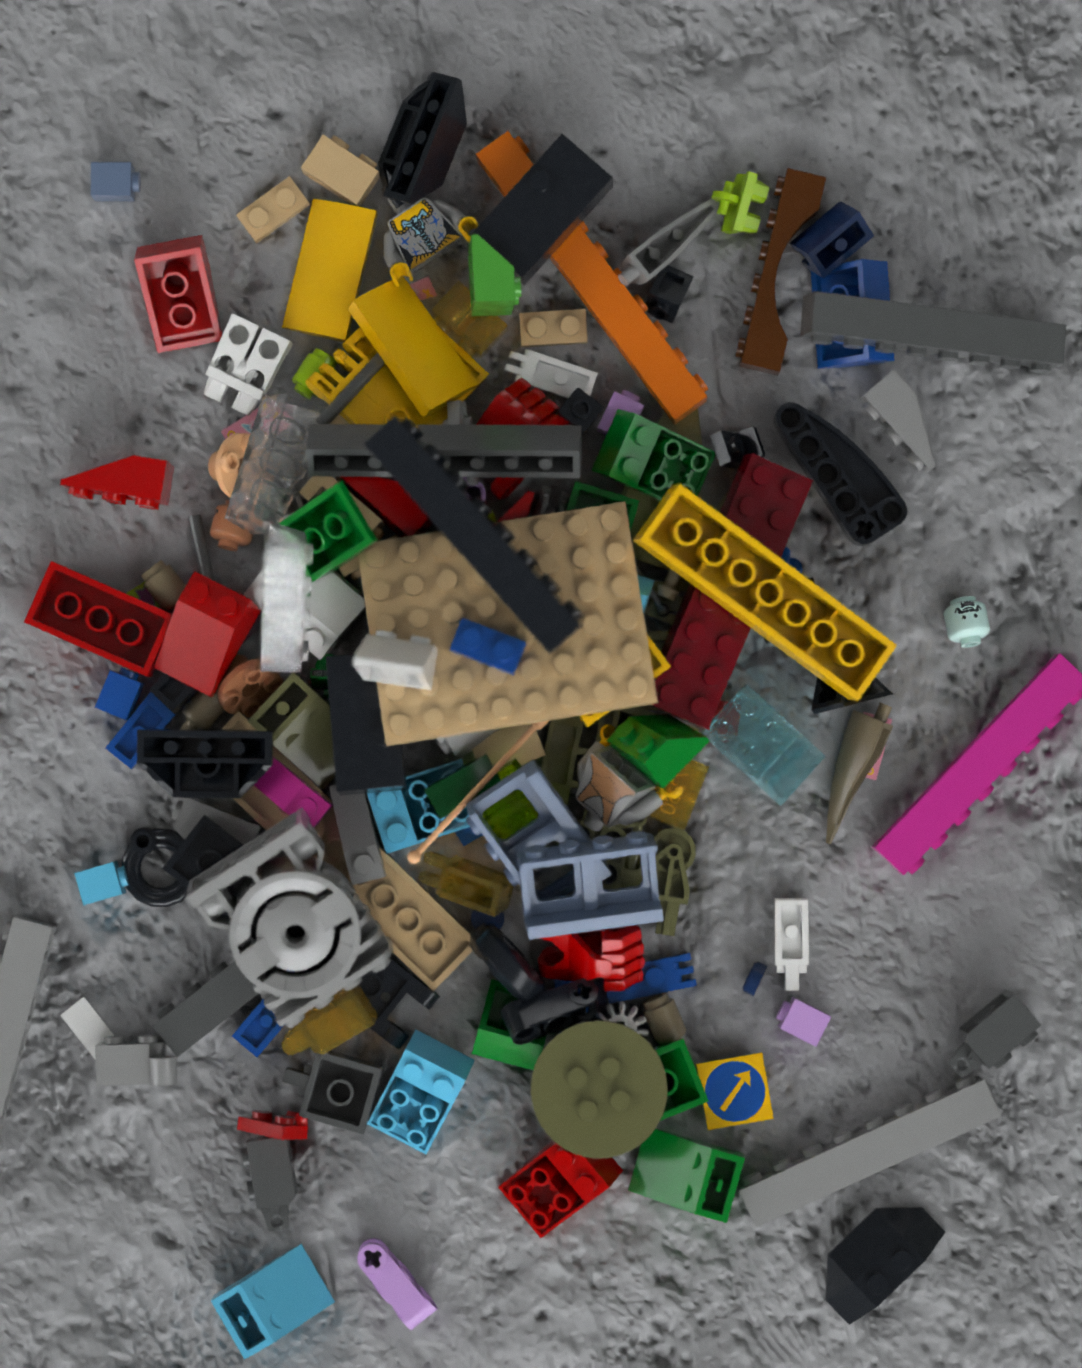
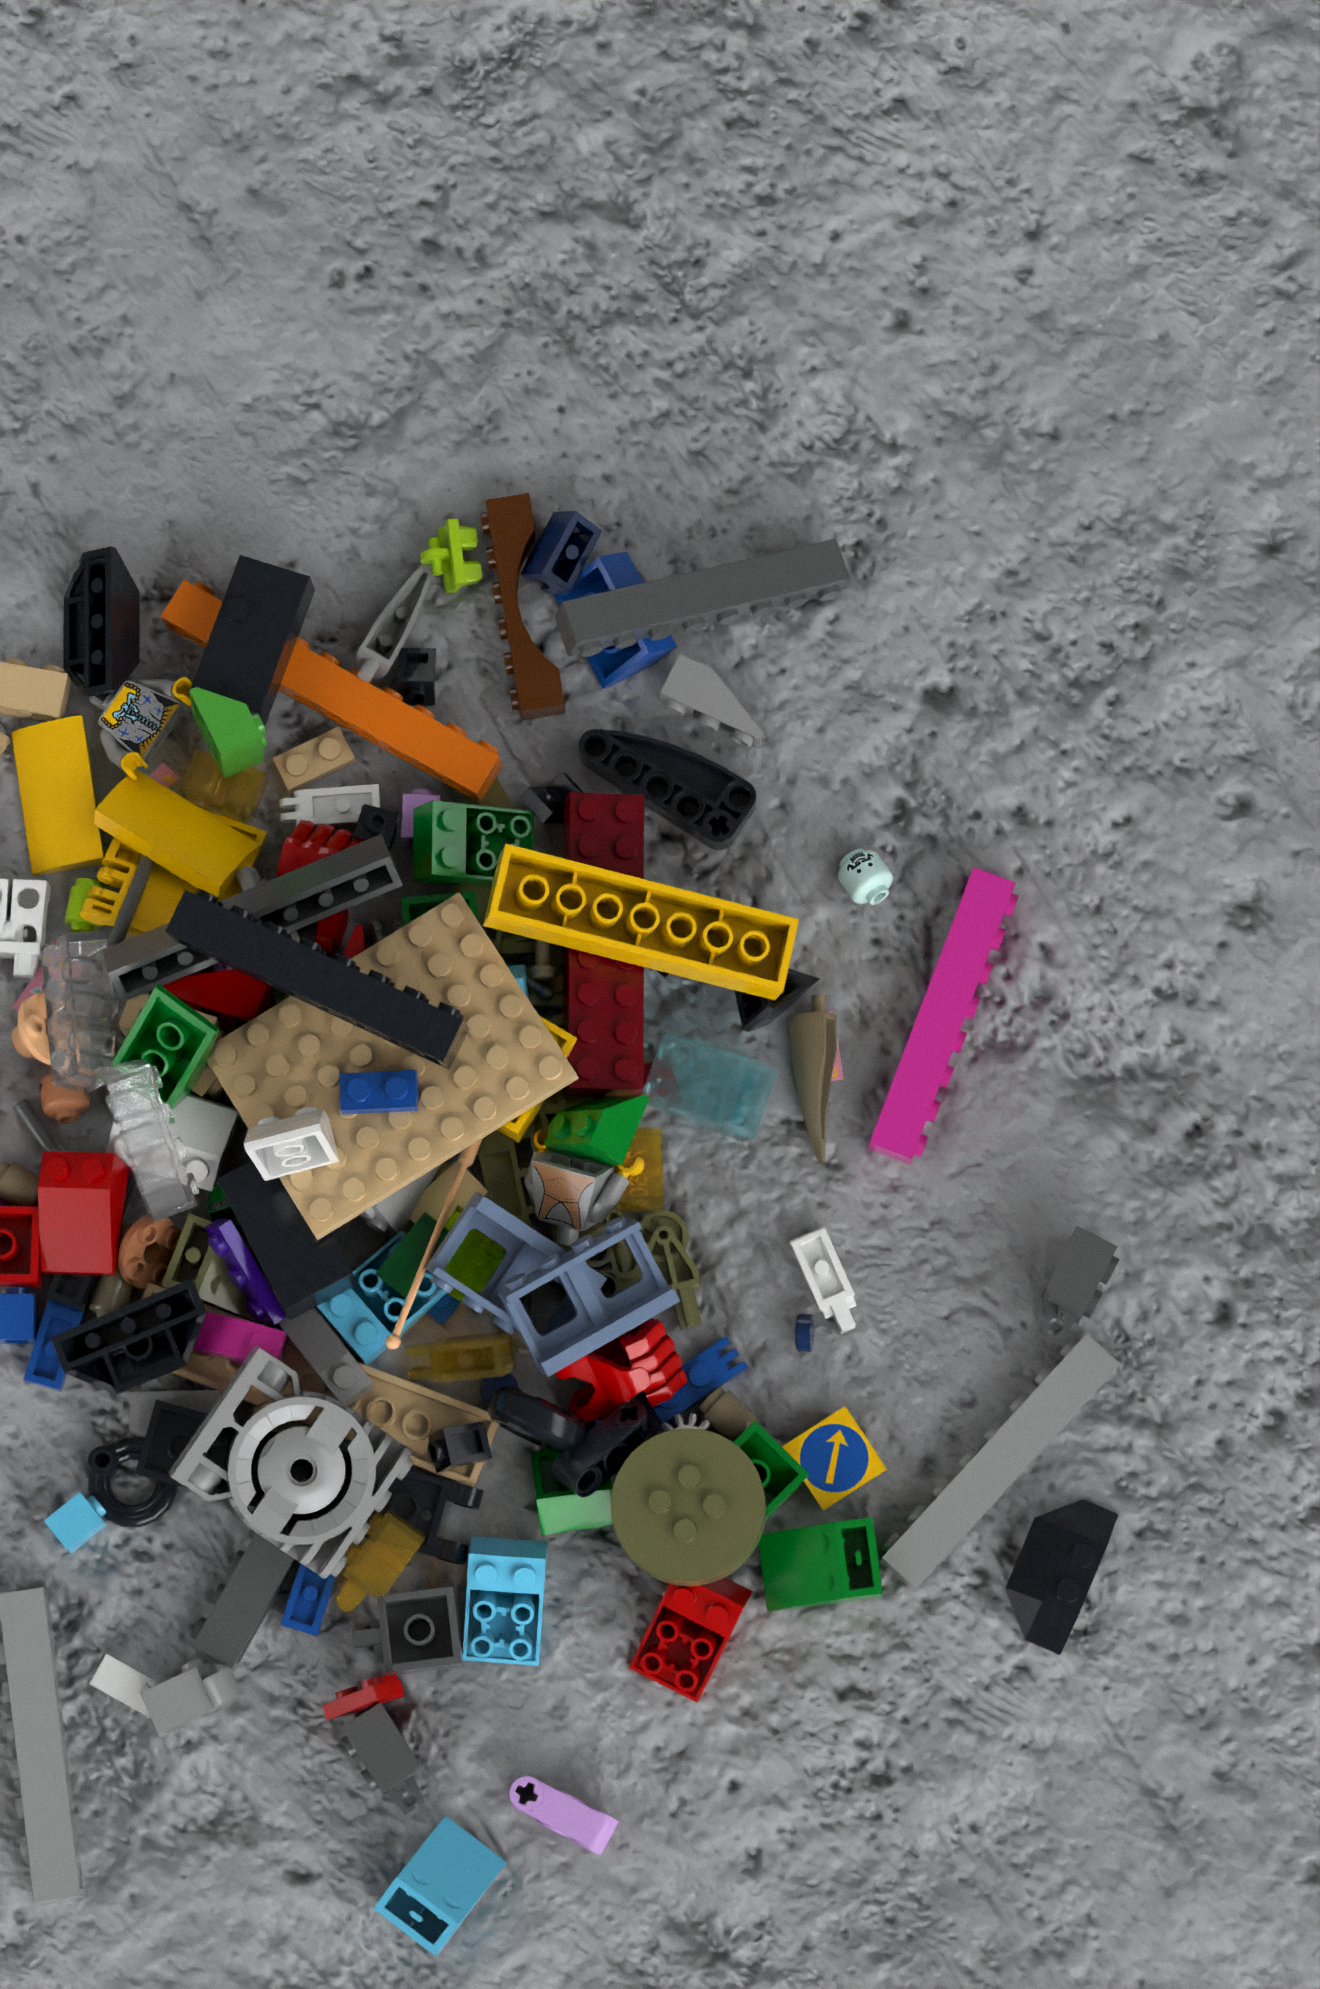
camera: 20 degrees left, 10 degrees down
(318, 740) = (244, 1272): none -> dark purple plate
(434, 955) = (459, 1446): none -> black bracket
(802, 1020) = (873, 1355): lavender brick -> none

